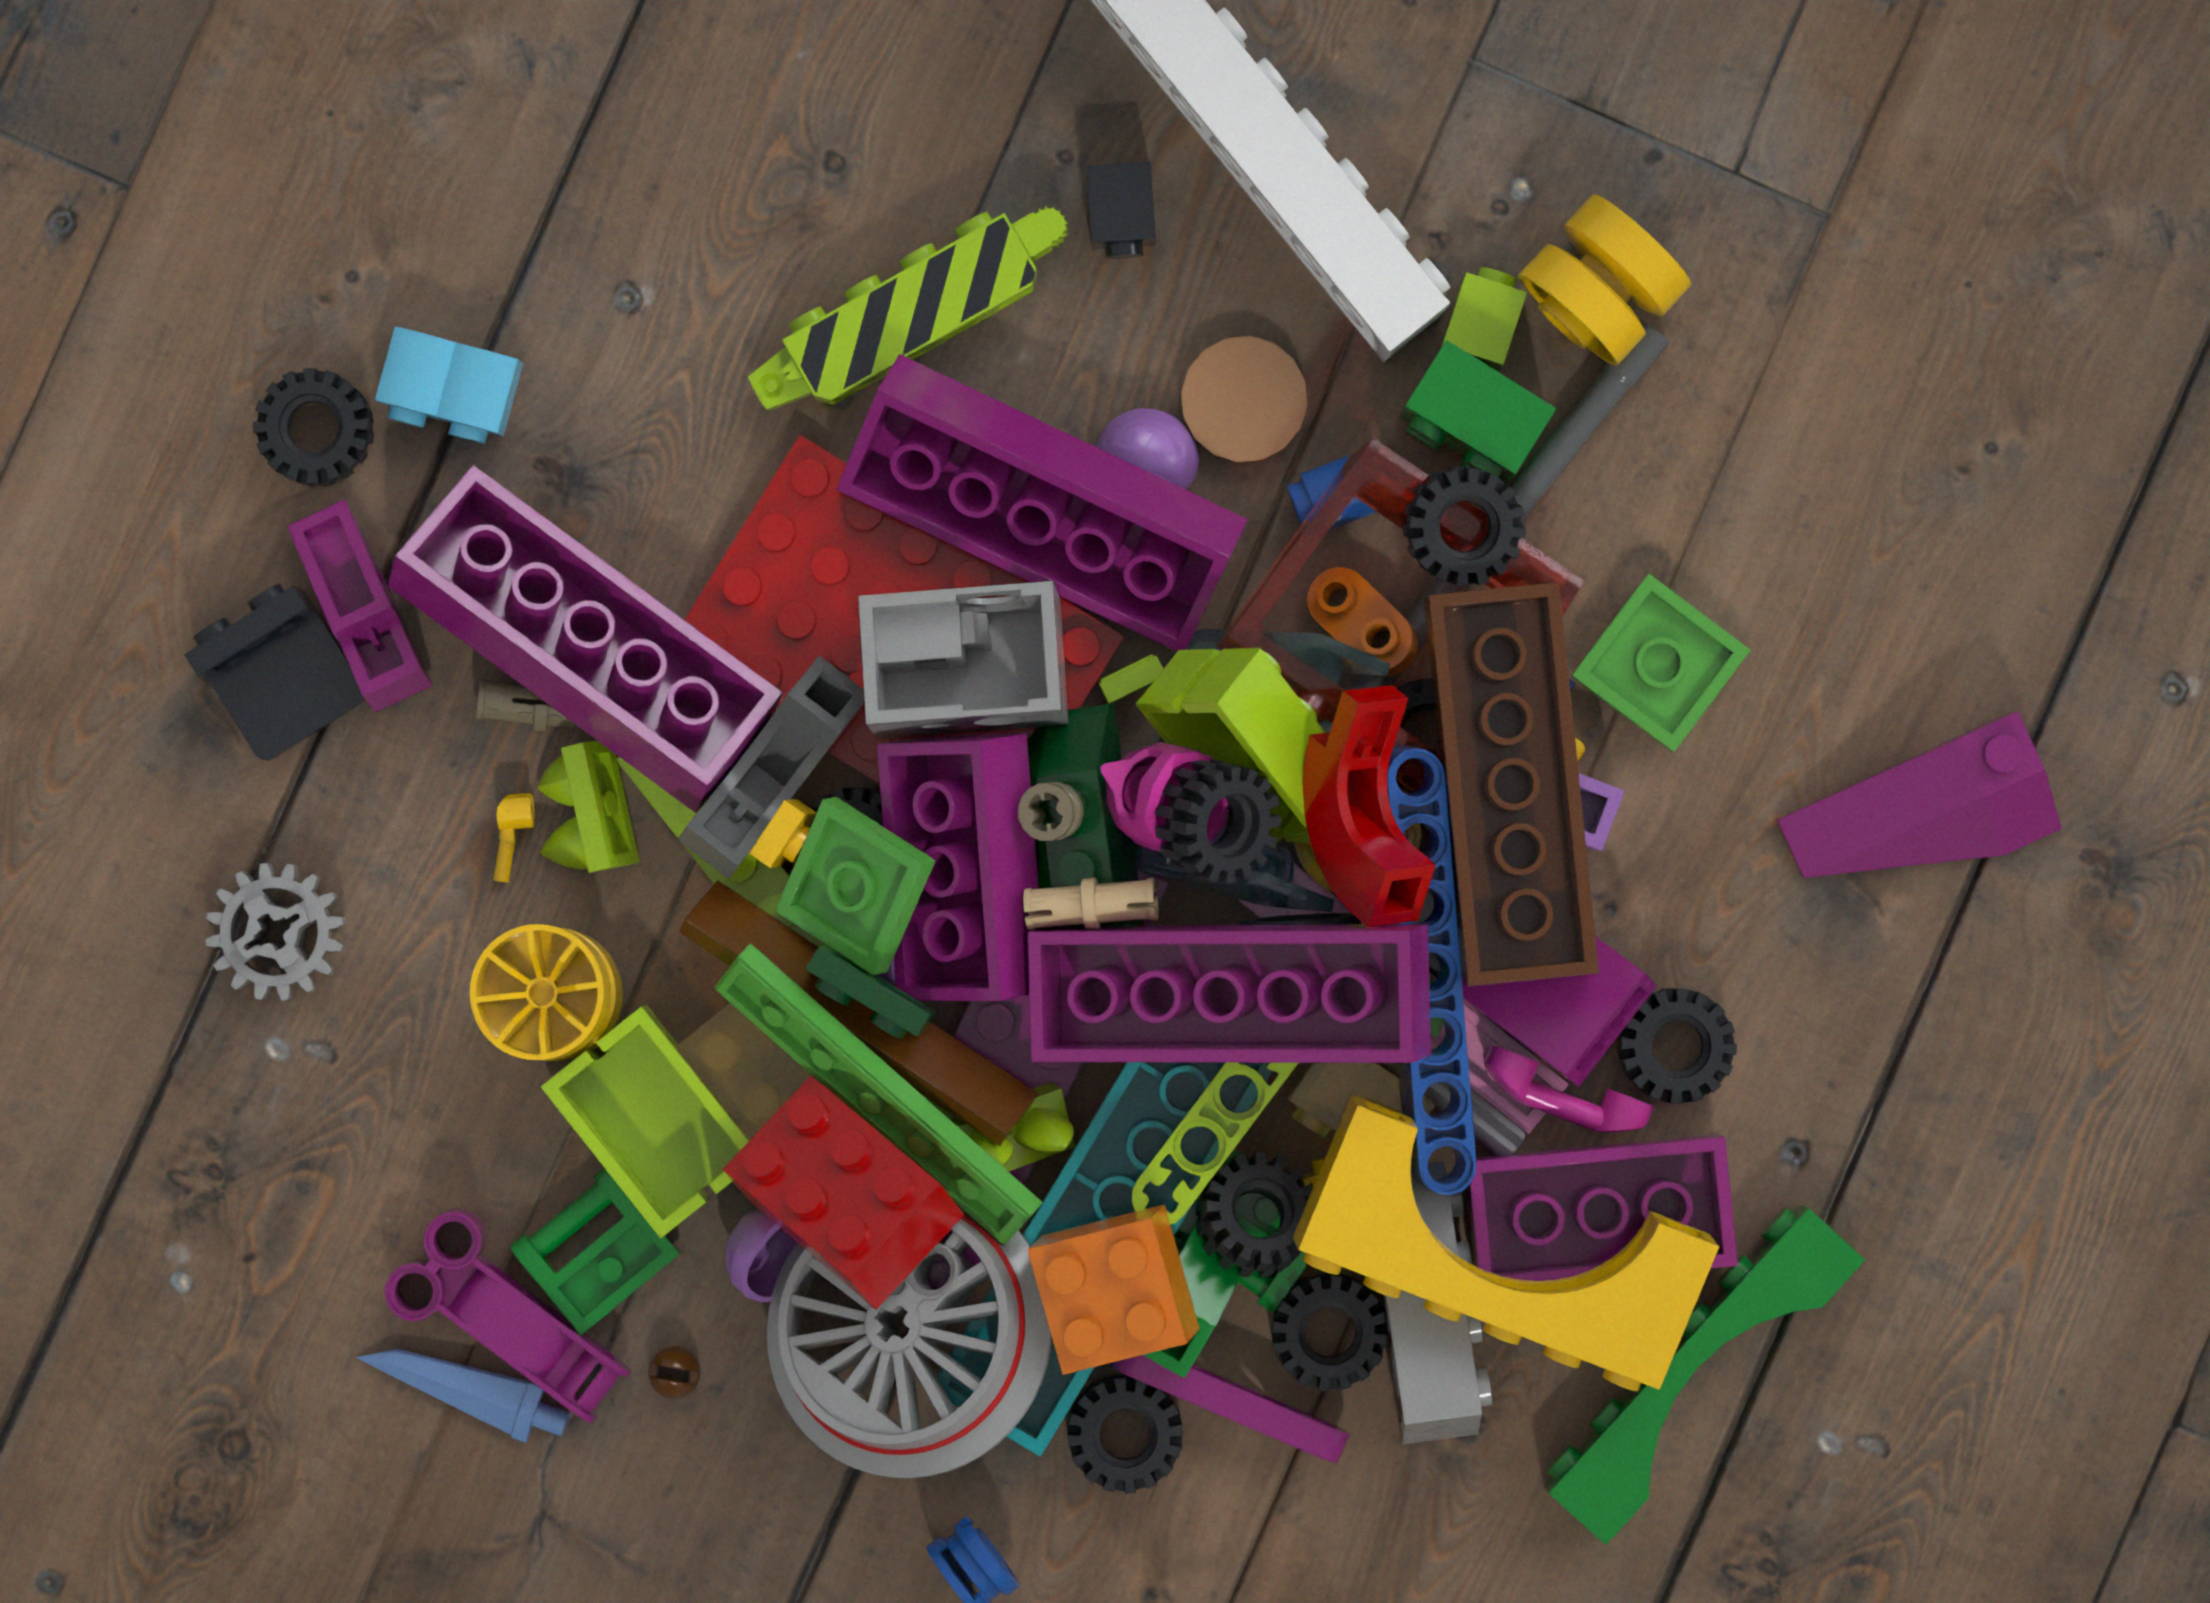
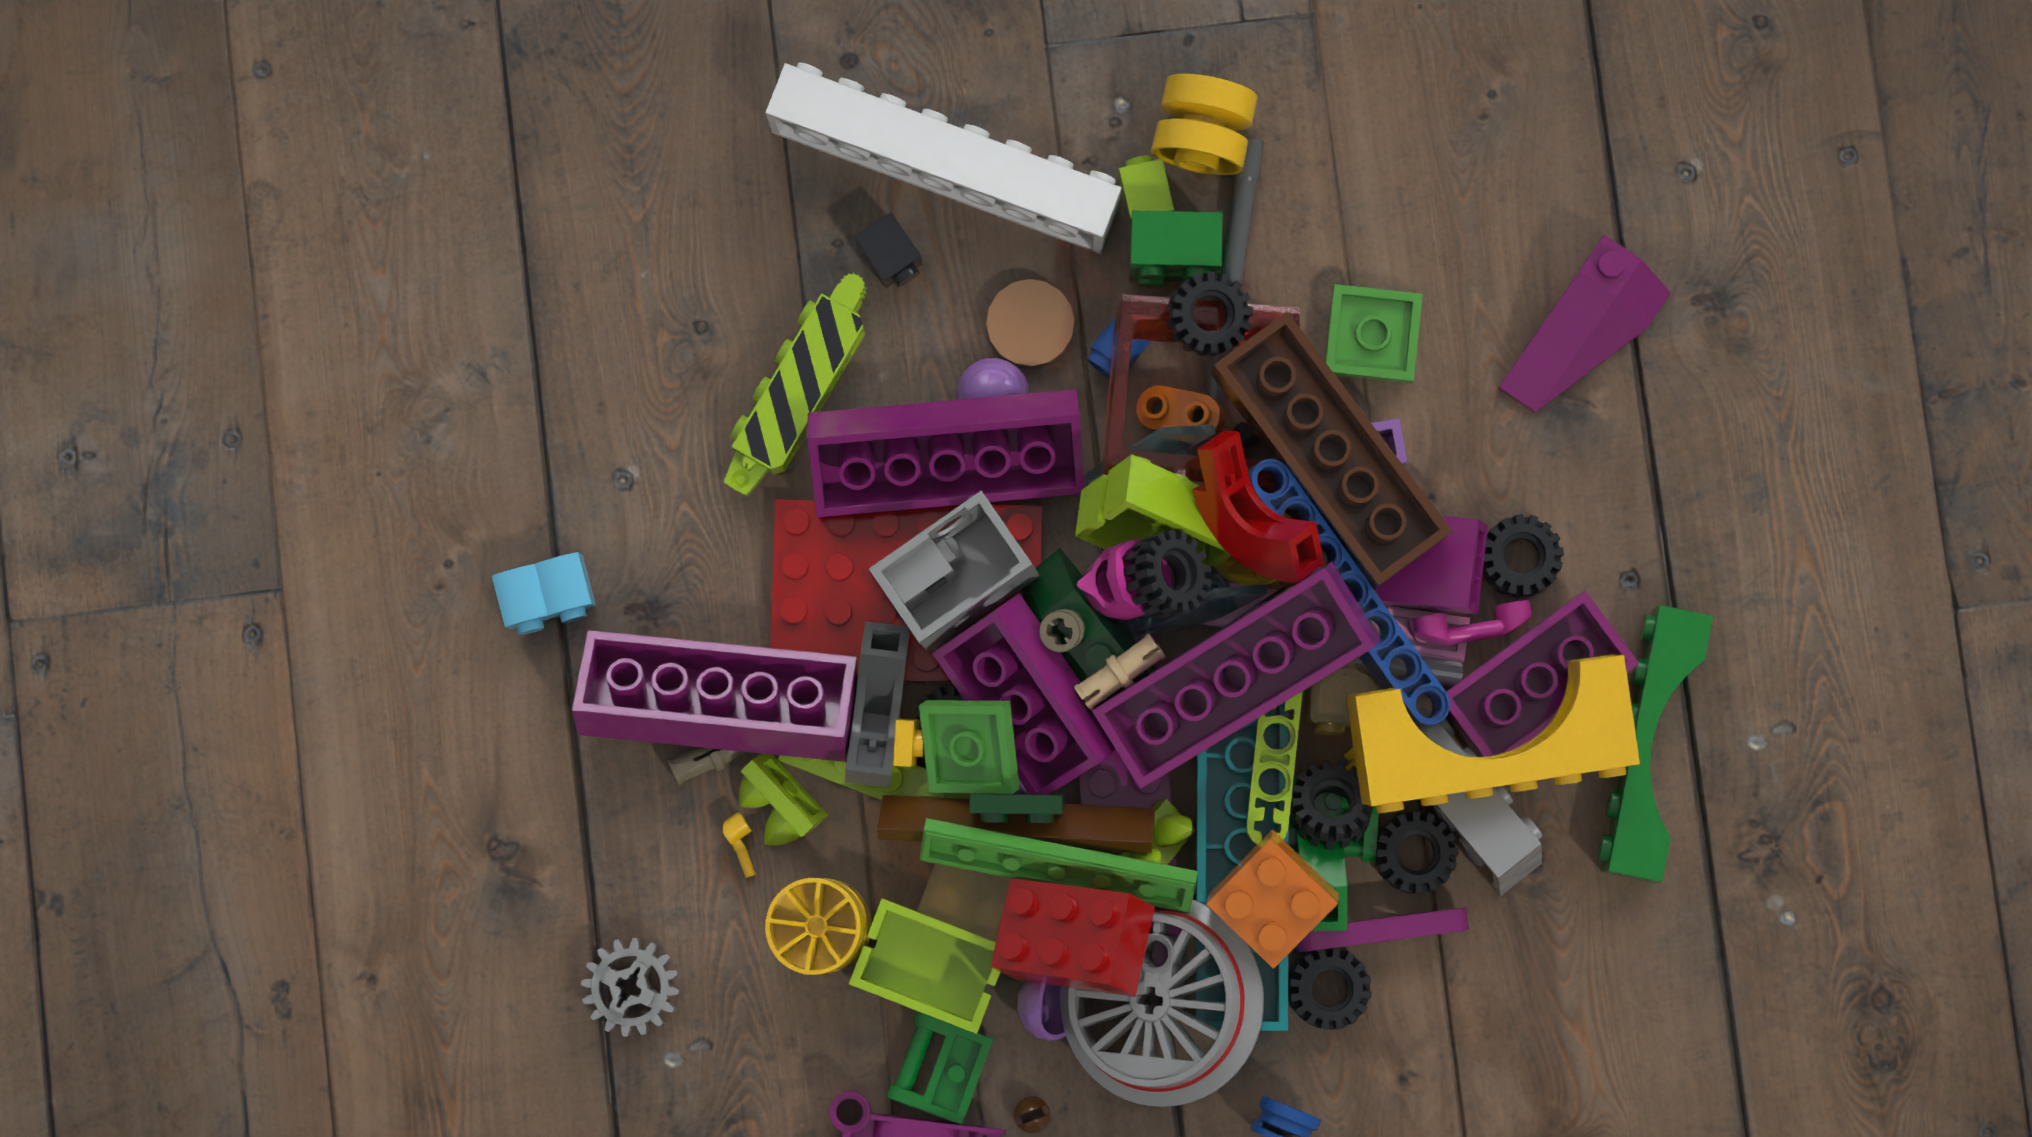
camera: 30 degrees left, 5 degrees down
(274, 427) = (458, 647): black tyre -> none
(277, 671) = (540, 827): black bracket -> none
(359, 606) = (567, 758): magenta slope -> none
(1130, 679) = (1061, 528): lime tile -> none

